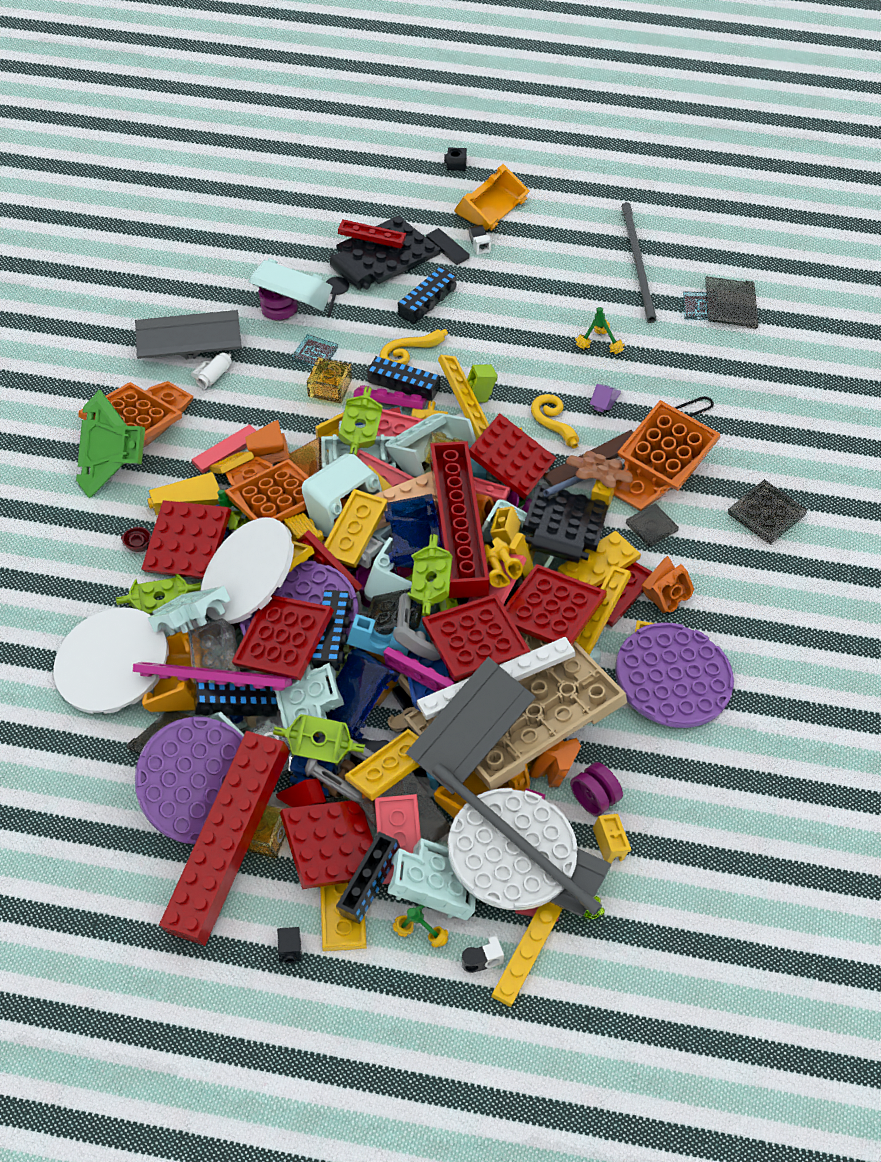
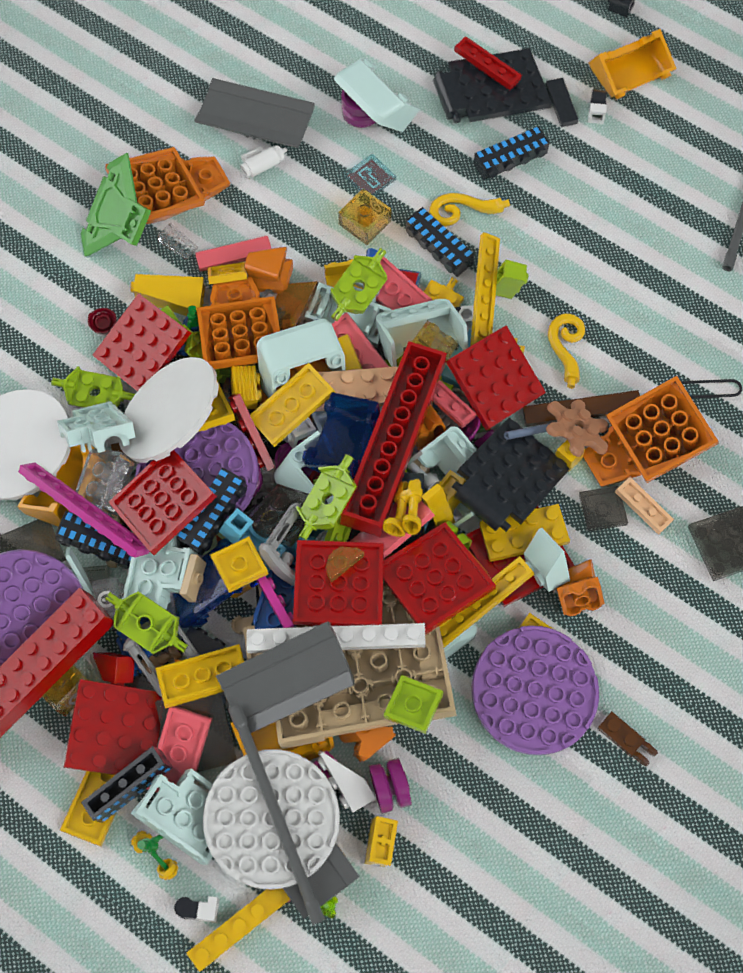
camera: 25 degrees right, 15 degrees up
(161, 451) = (171, 229): none -> clear slope
(289, 944) = (30, 814): black brick -> none
(340, 286) = (430, 108): black piece -> none
(343, 688) = (193, 578): none -> tan plate
(381, 655) = (239, 564): none -> yellow plate
(396, 398) = (415, 258): dark pink plate -> none
(470, 616) = (342, 560): none -> clear yellow plate
(505, 524) = (441, 462): yellow brick -> none
(565, 800) = (351, 786): none -> white slope
(589, 701) = (413, 704): none -> lime plate
(600, 325) = (668, 256): plant -> none
(604, 397) = (630, 342): medium lavender slope -> none
(639, 564) = (547, 561): none -> light aqua slope
(684, 509) = (644, 505): none -> light nougat plate
(769, 683) = (626, 738): none -> reddish brown hinge

